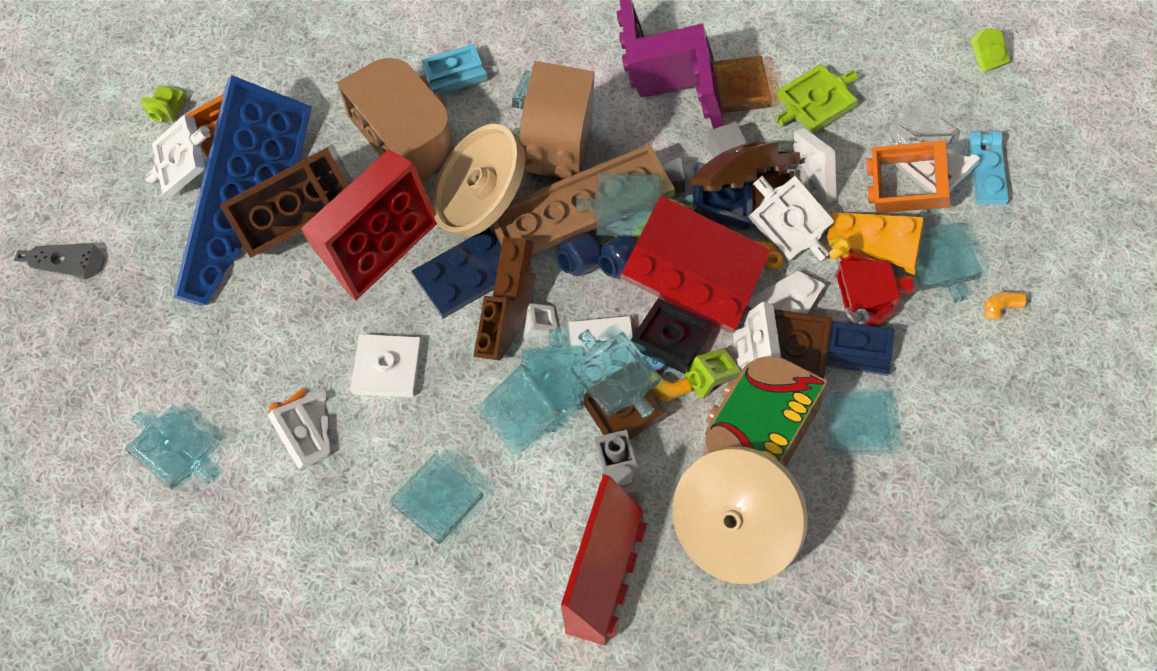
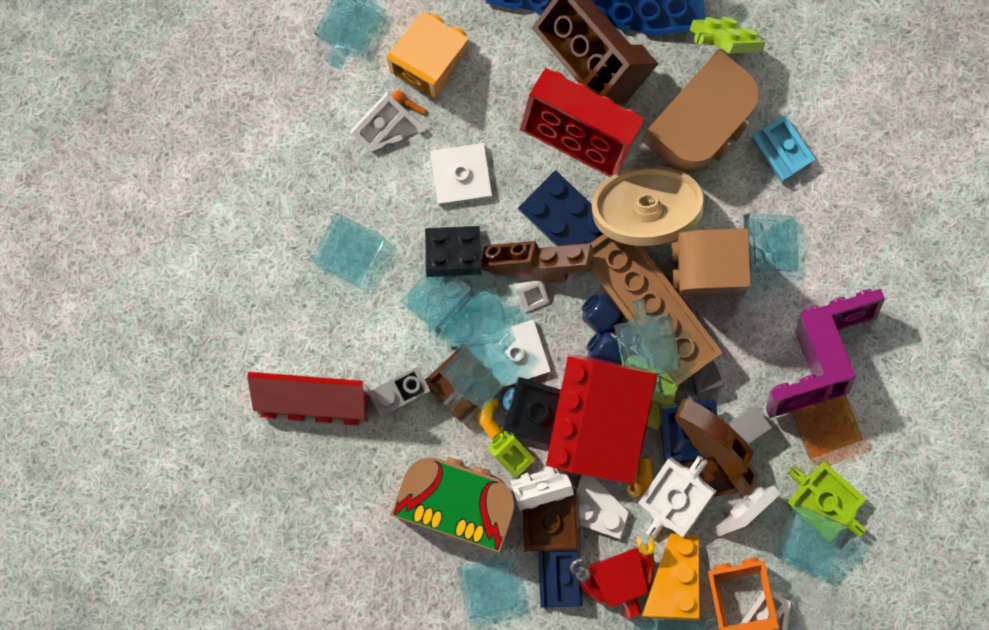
camera: 75 degrees right, 20 degrees up
(242, 367) = (428, 53): none -> light orange slope
(320, 87) = (726, 35): none -> lime plate
(471, 383) = (453, 251): none -> black plate
(760, 497) = (370, 498): tan dish -> none
(855, 115) = (810, 540): none -> clear light blue plate

